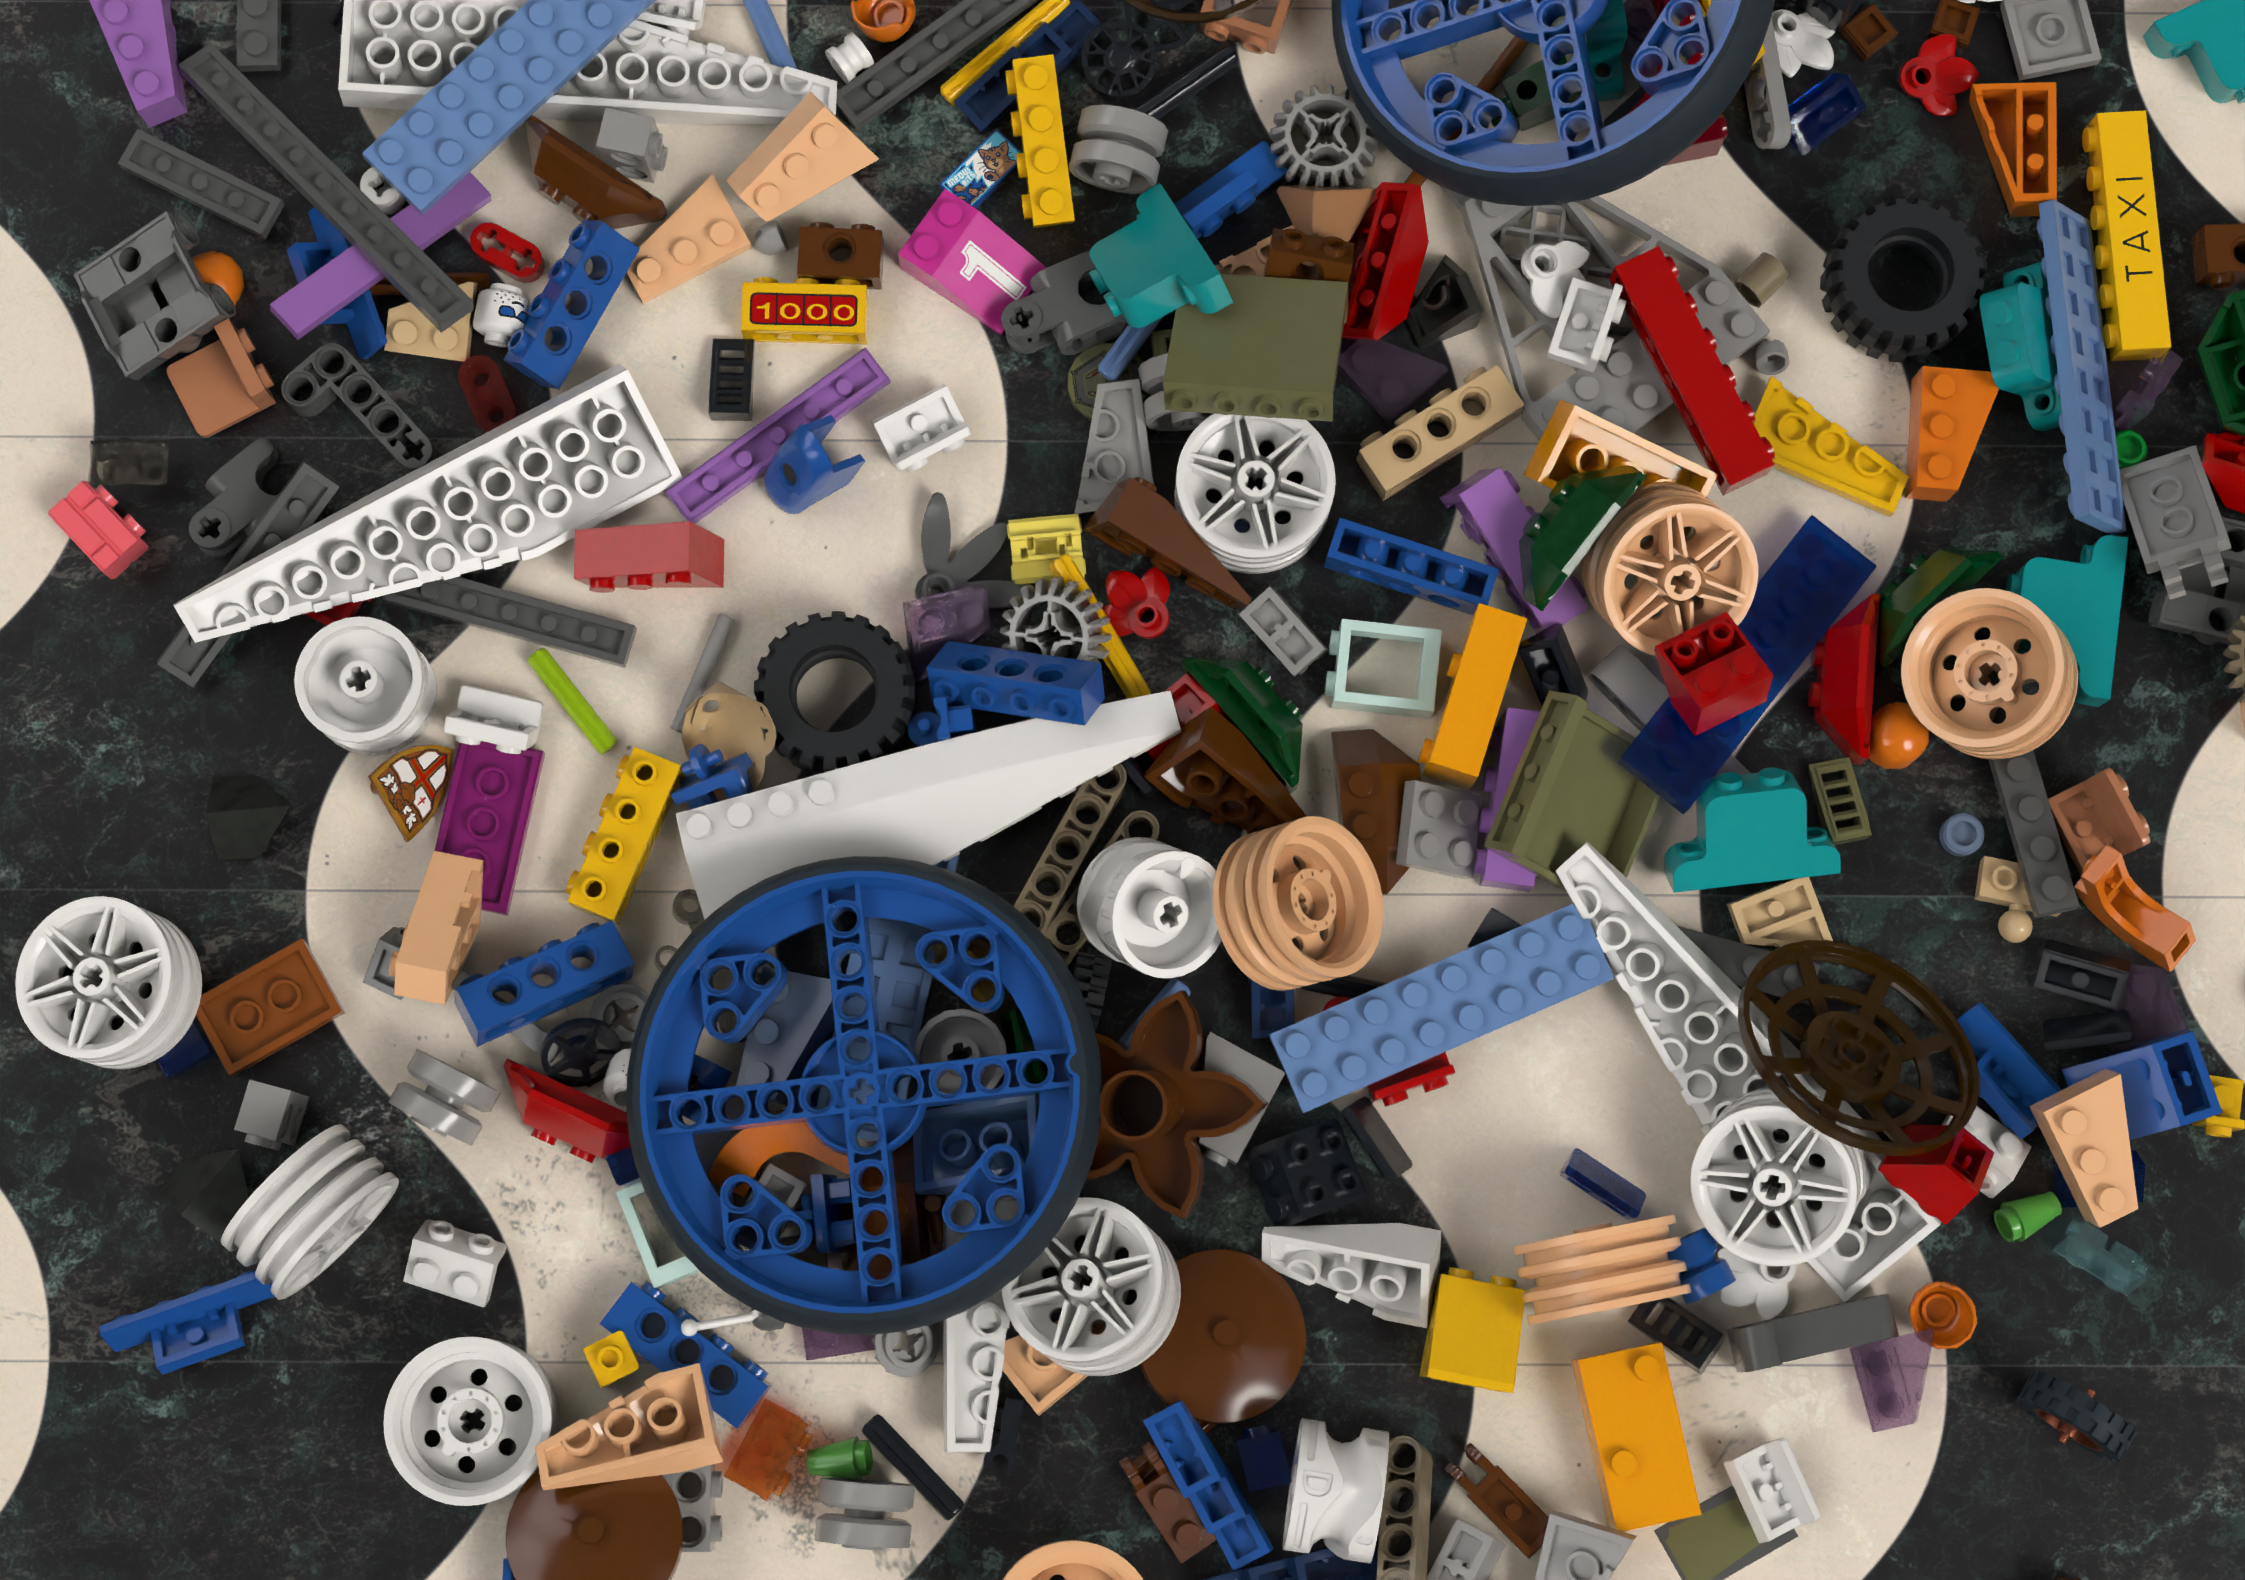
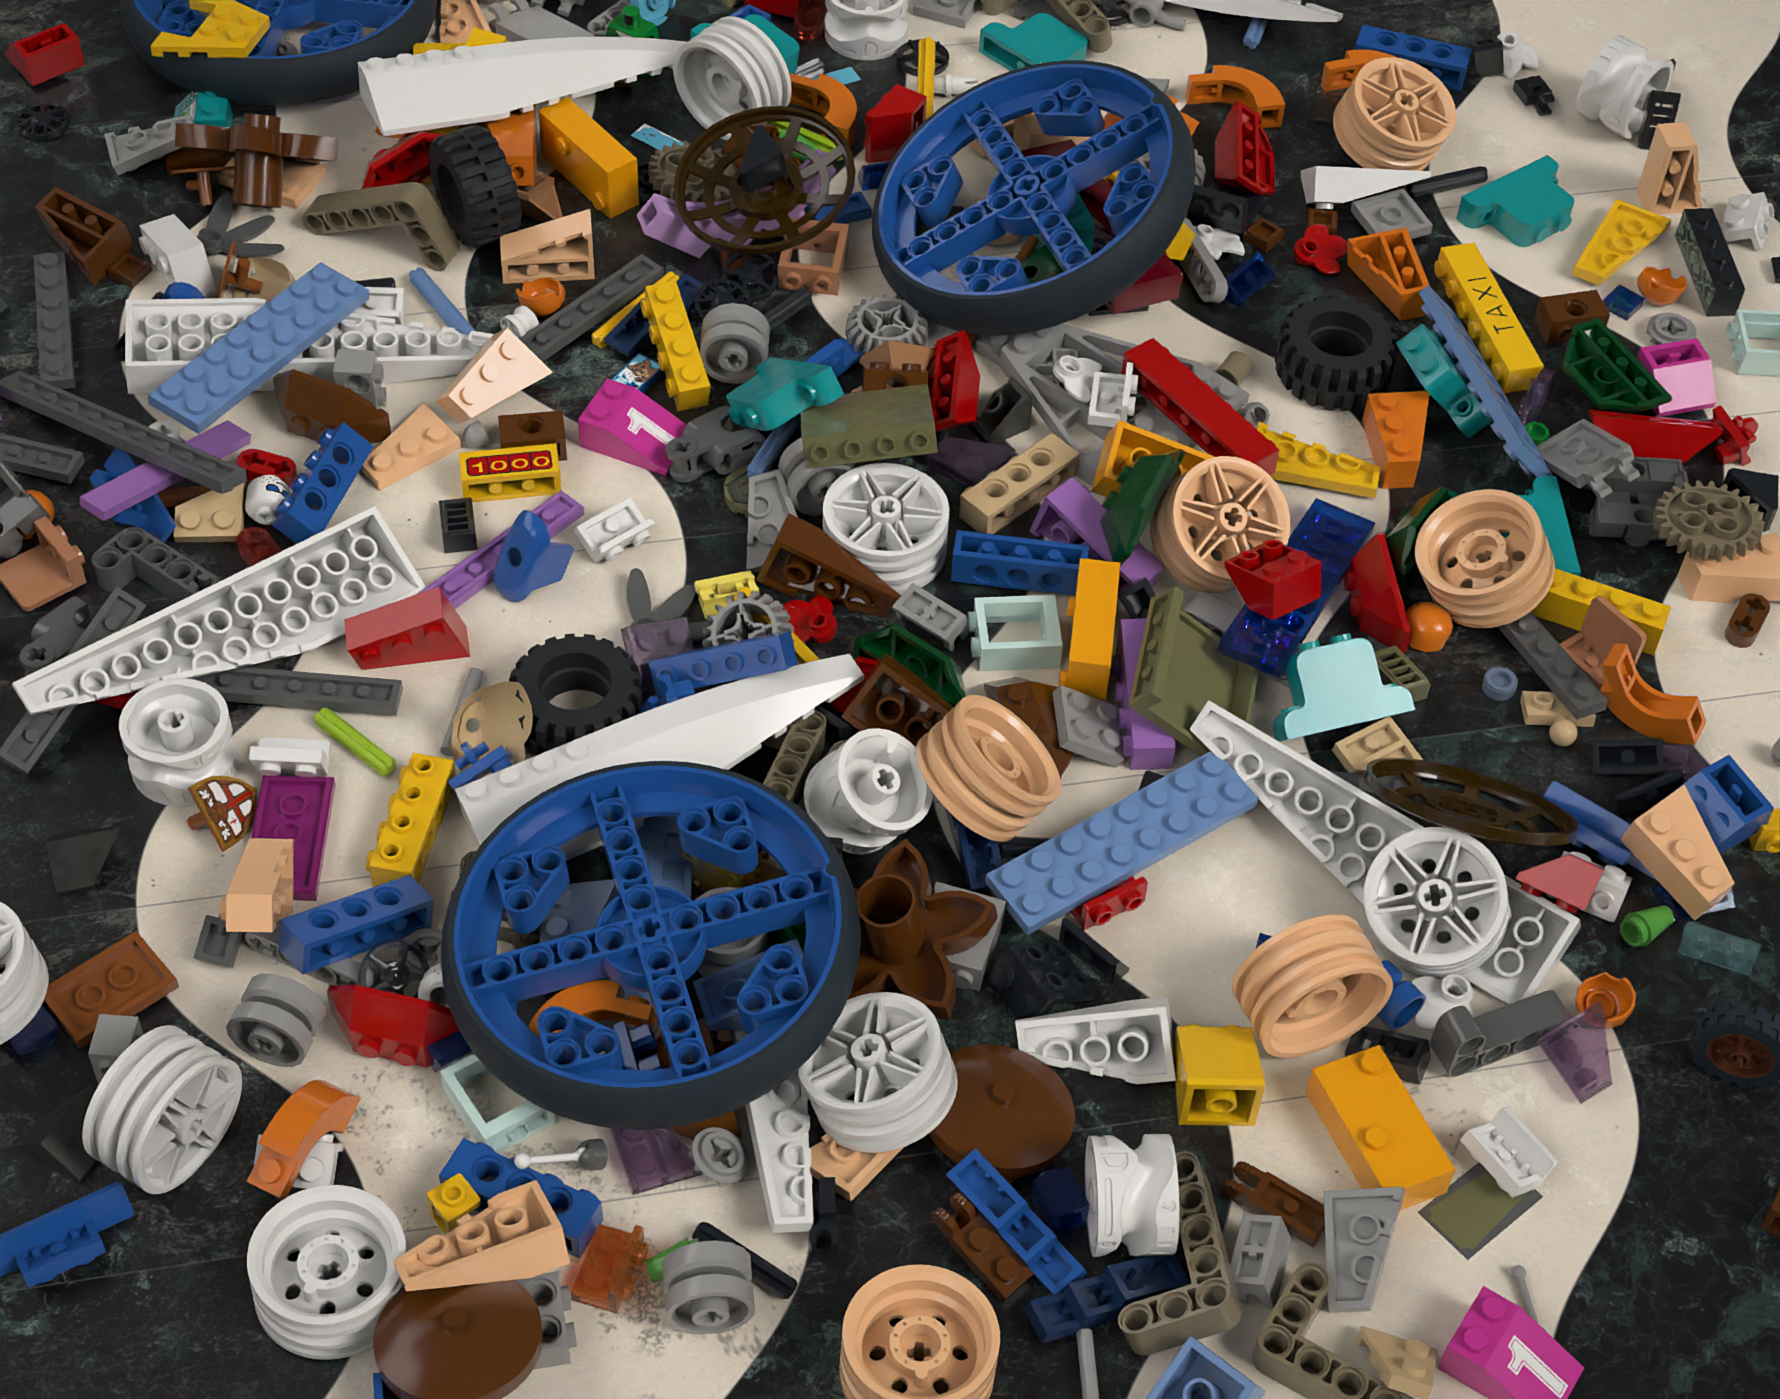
camera: 10 degrees left, 30 degrees down
(459, 1242) = (296, 1129): none -> orange arch
(2150, 772) = (1572, 595): none -> yellow brick

